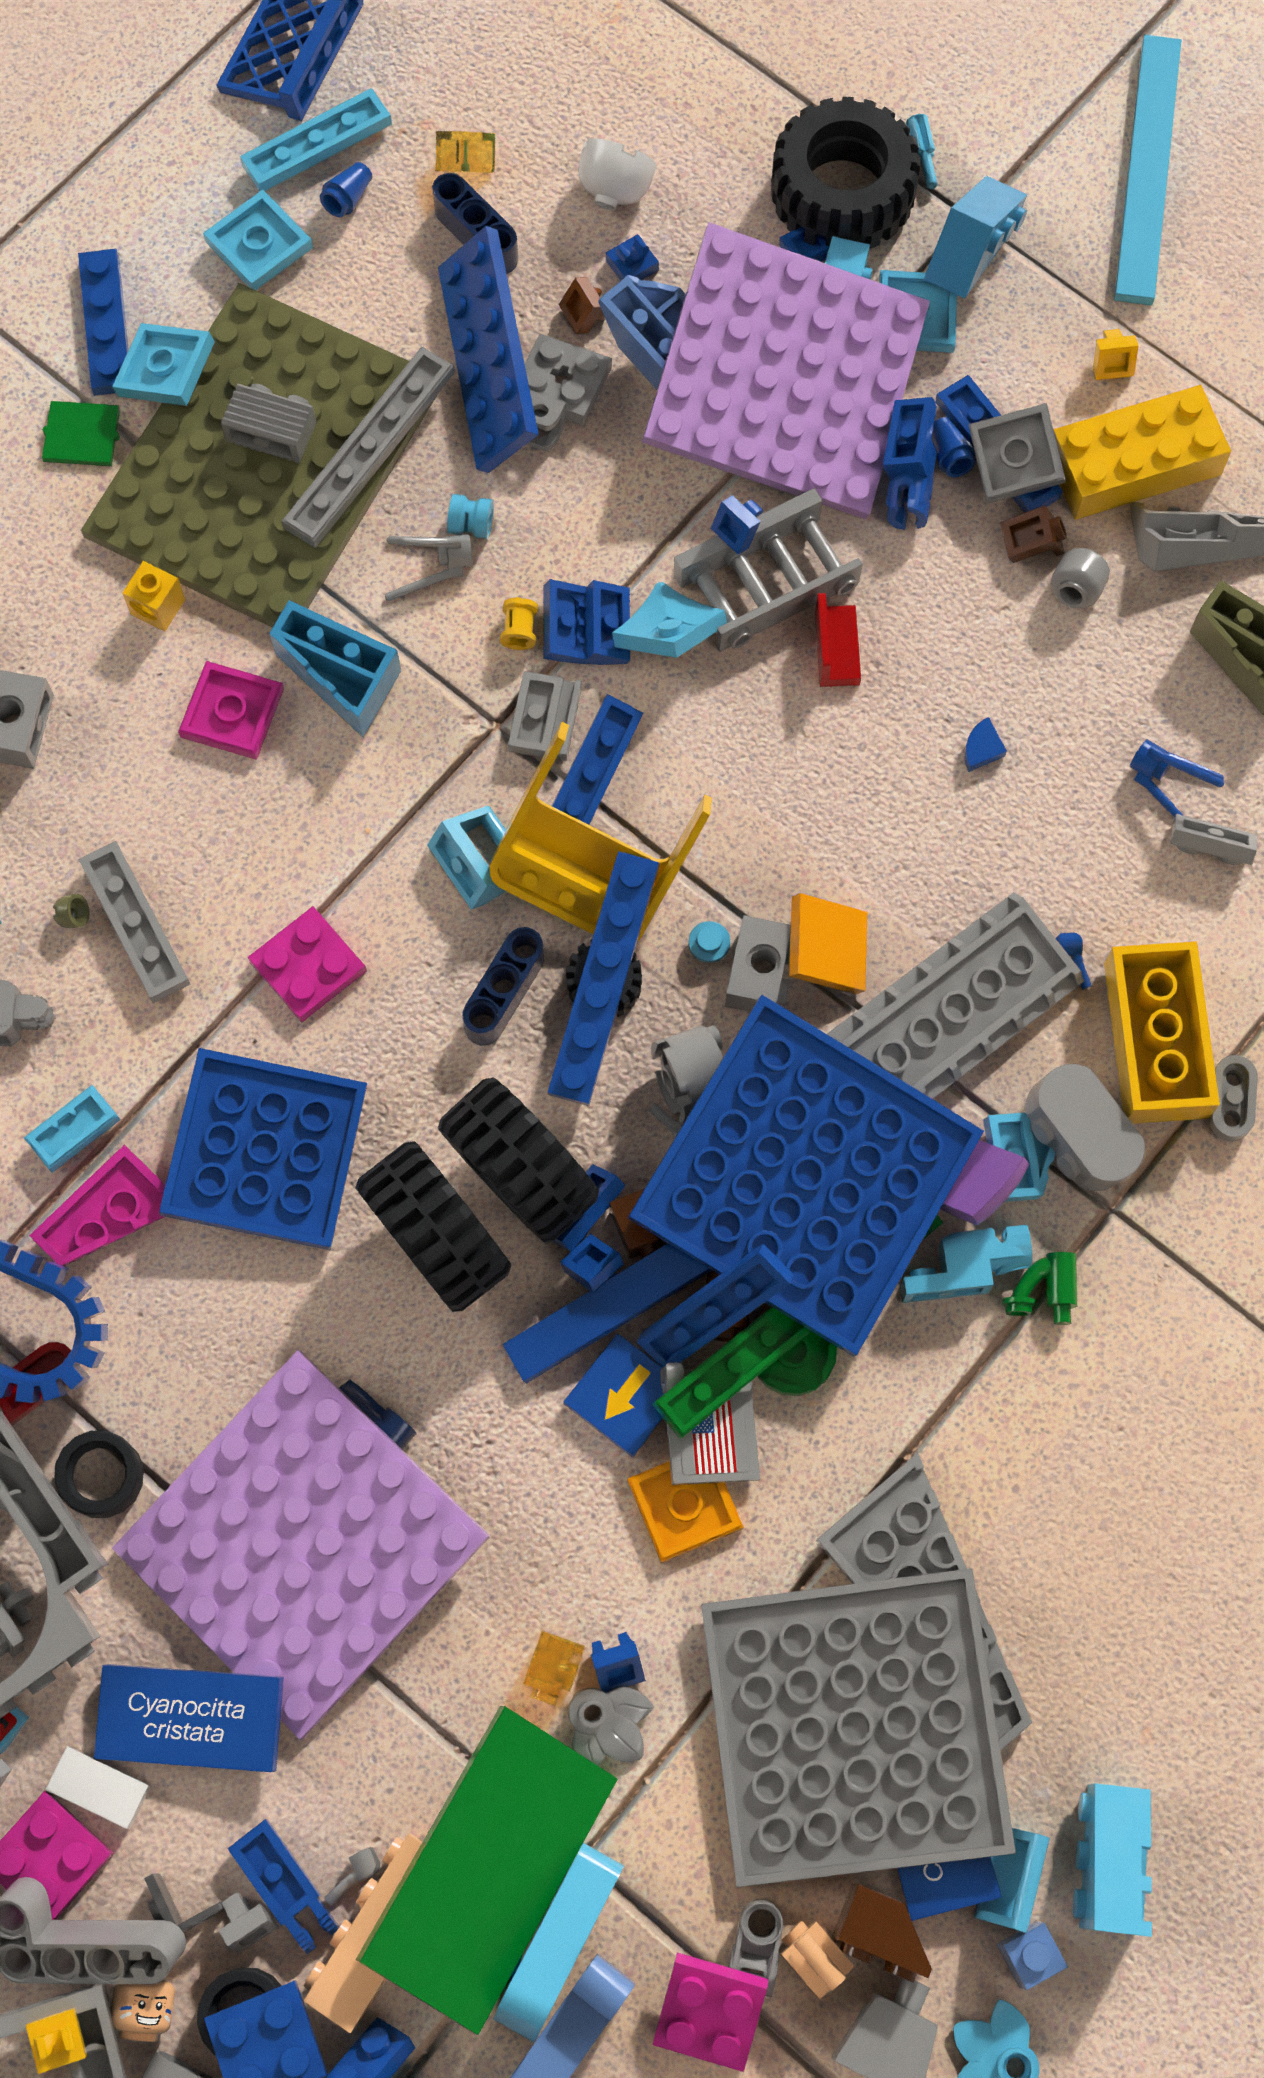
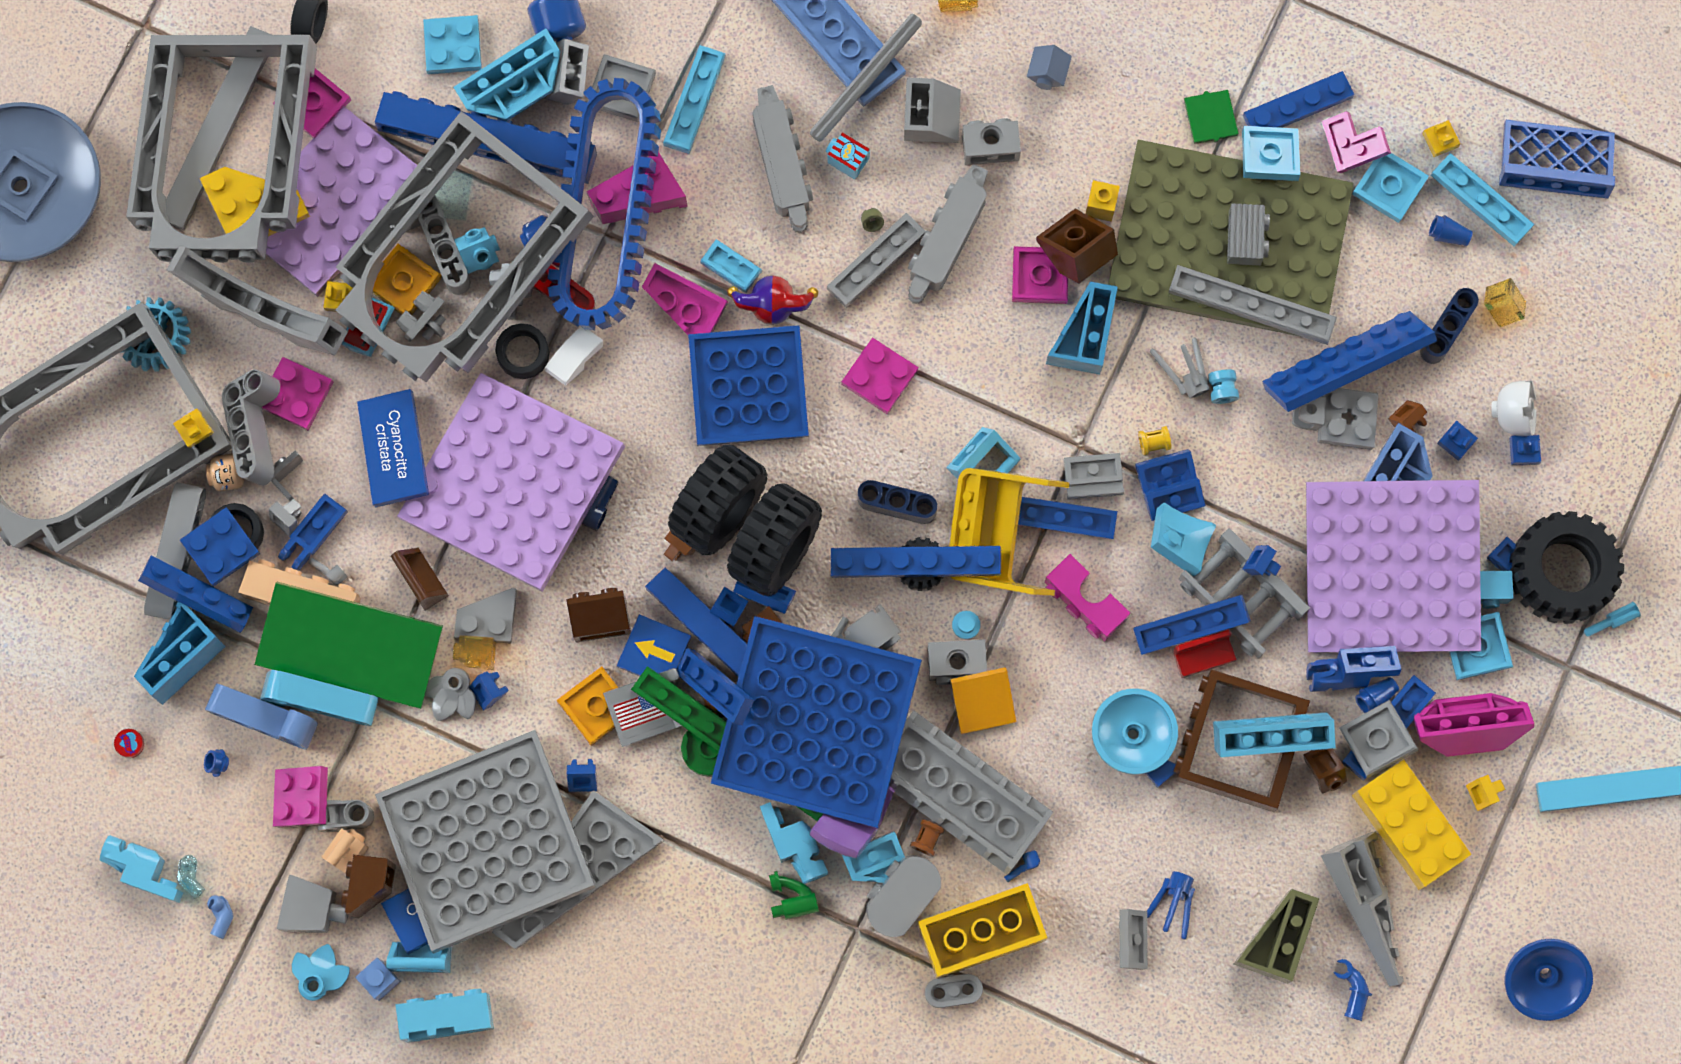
camera: 75 degrees right, 5 degrees up
(98, 1787) = (341, 409): white tile -> none
(131, 811) = (948, 235): none -> light grey hinge
(132, 1396) = (573, 354): none -> white slope
(145, 1079) = (772, 299): none -> piece
(193, 271) = (1352, 149): none -> plate
(208, 641) = (1078, 245): none -> reddish brown slope
(214, 166) = (1441, 138): none -> yellow tile
(409, 1727) = (419, 577): none -> reddish brown tile
(477, 1316) = (676, 548): none -> dark orange tile
(503, 1636) = (488, 617): none -> light grey wing
(553, 1458) = (598, 615): none -> reddish brown slope
(669, 186) = (1525, 450): none -> blue tile
(752, 760) = (1101, 617): none -> dark pink arch
(791, 1551) = (582, 777): none -> blue tile
(796, 640) = (1191, 624): none -> blue plate
(932, 733) = (1140, 712): none -> medium azure dish
(975, 234) = (1546, 670): dark azure wedge -> none
(985, 569) = (1274, 734): none -> medium azure brick
(999, 576) = (1191, 738): none -> reddish brown window
(1005, 1075) = (927, 838): none -> dark orange bush
(1021, 336) = (1473, 724): none -> dark pink wedge
(1080, 578) = (1301, 806): light grey head -> none

